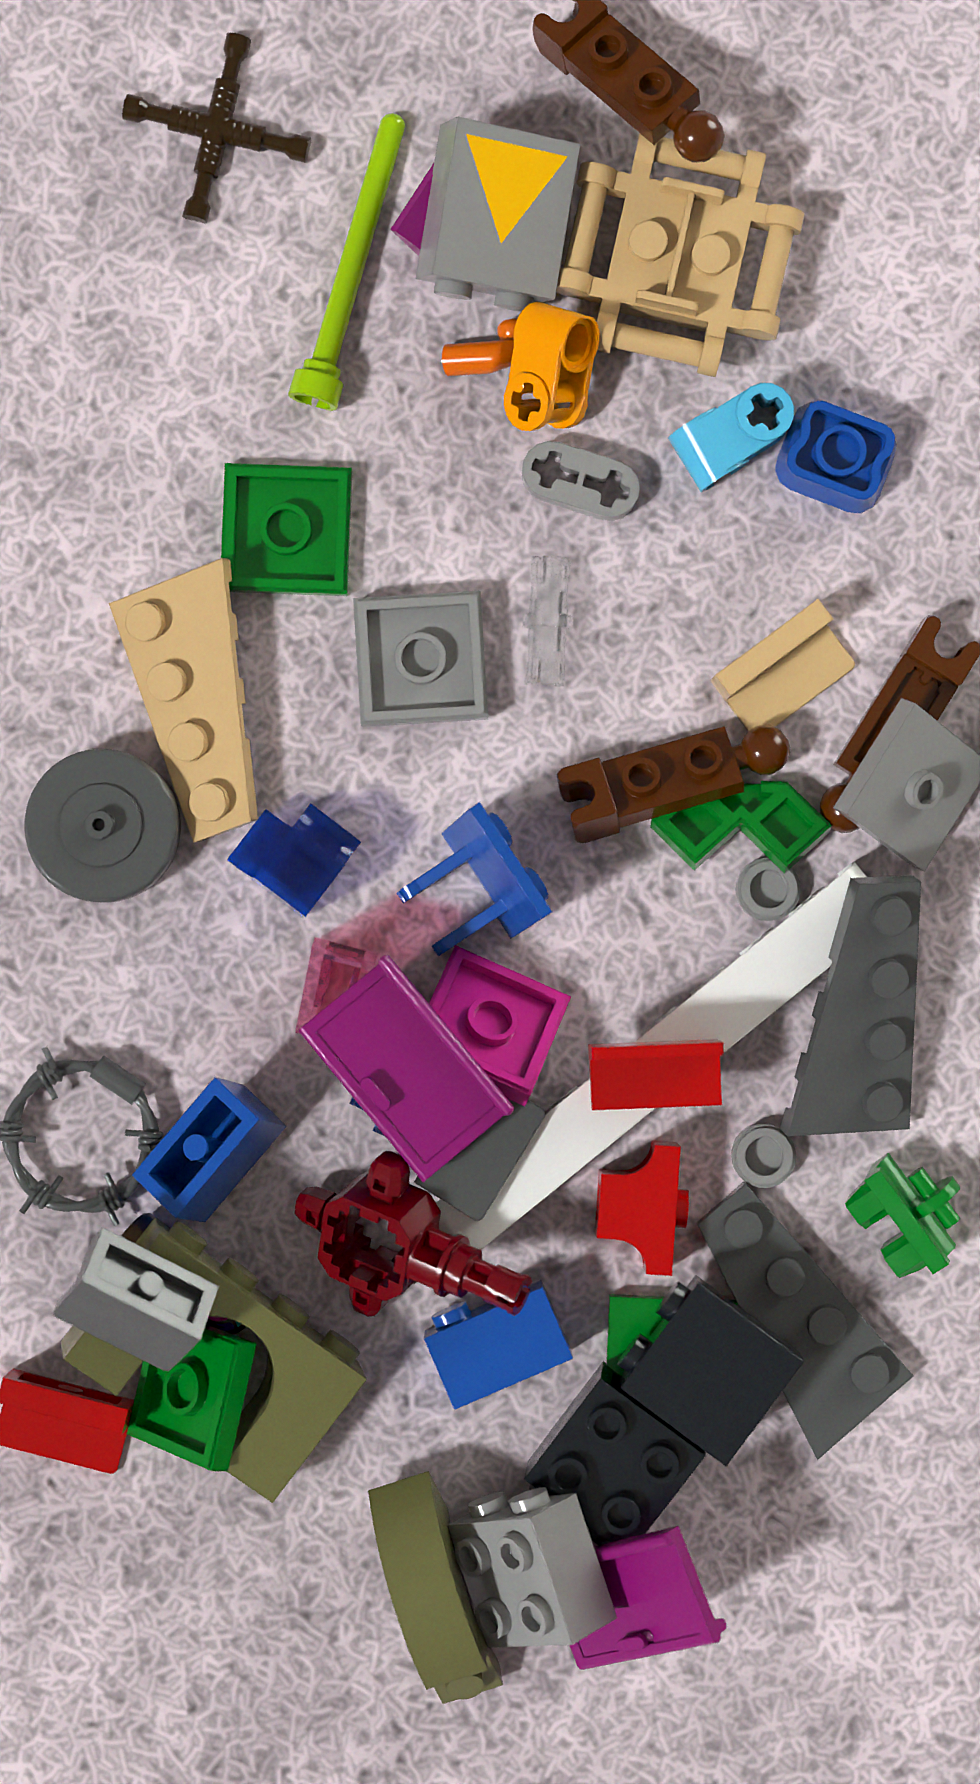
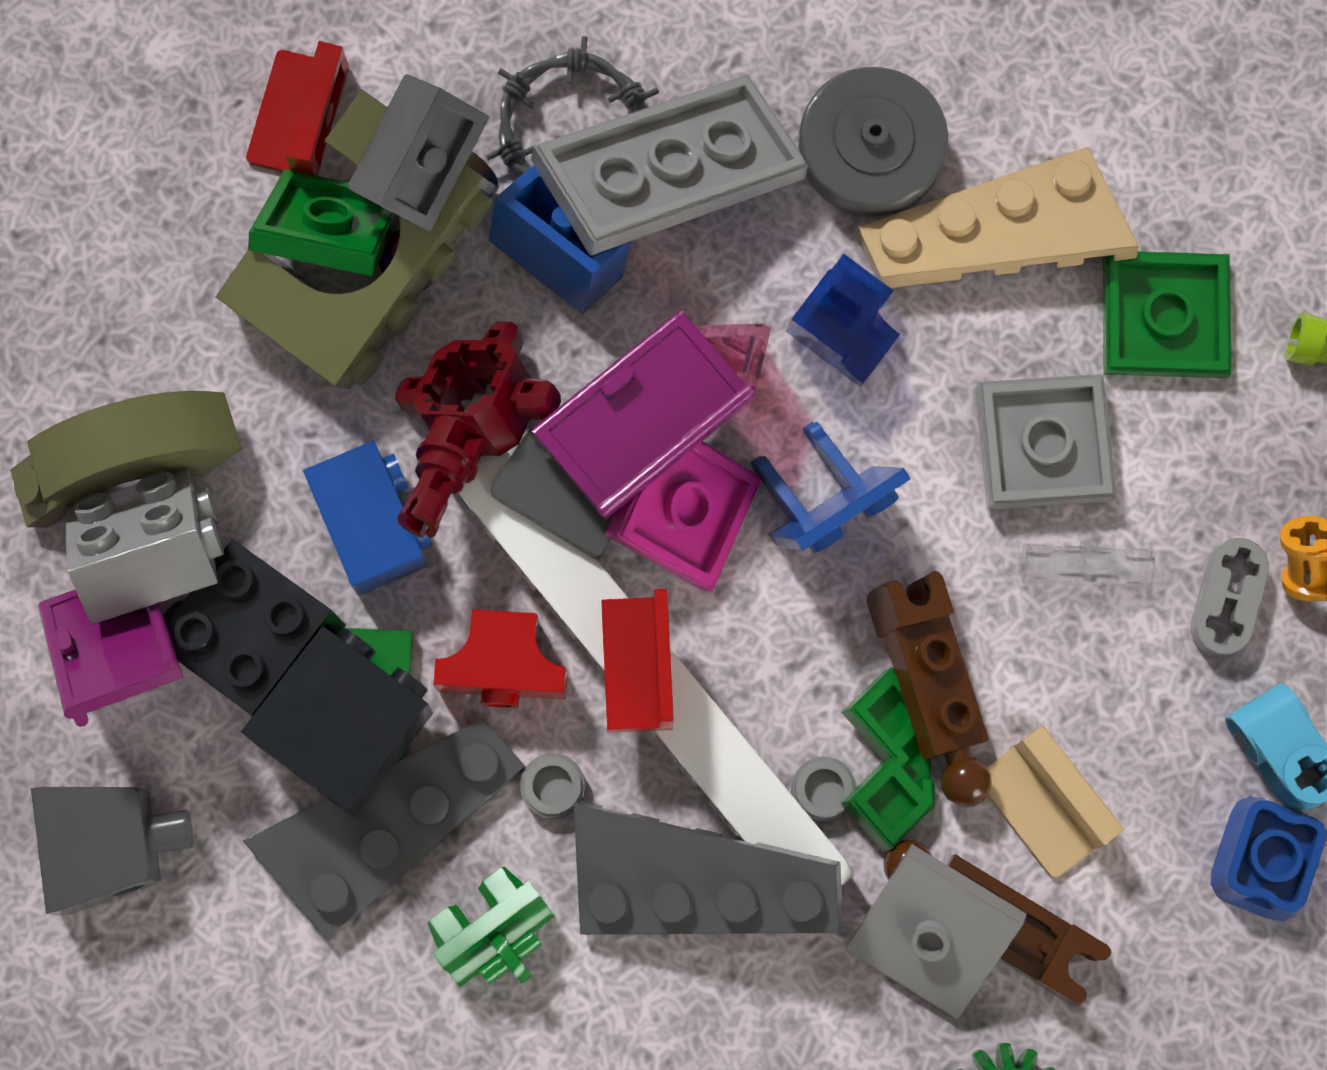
camera: 90 degrees right, 10 degrees down
(132, 1038) = (668, 164): none -> light grey tile
(820, 1598) = (101, 843): none -> dark grey torso

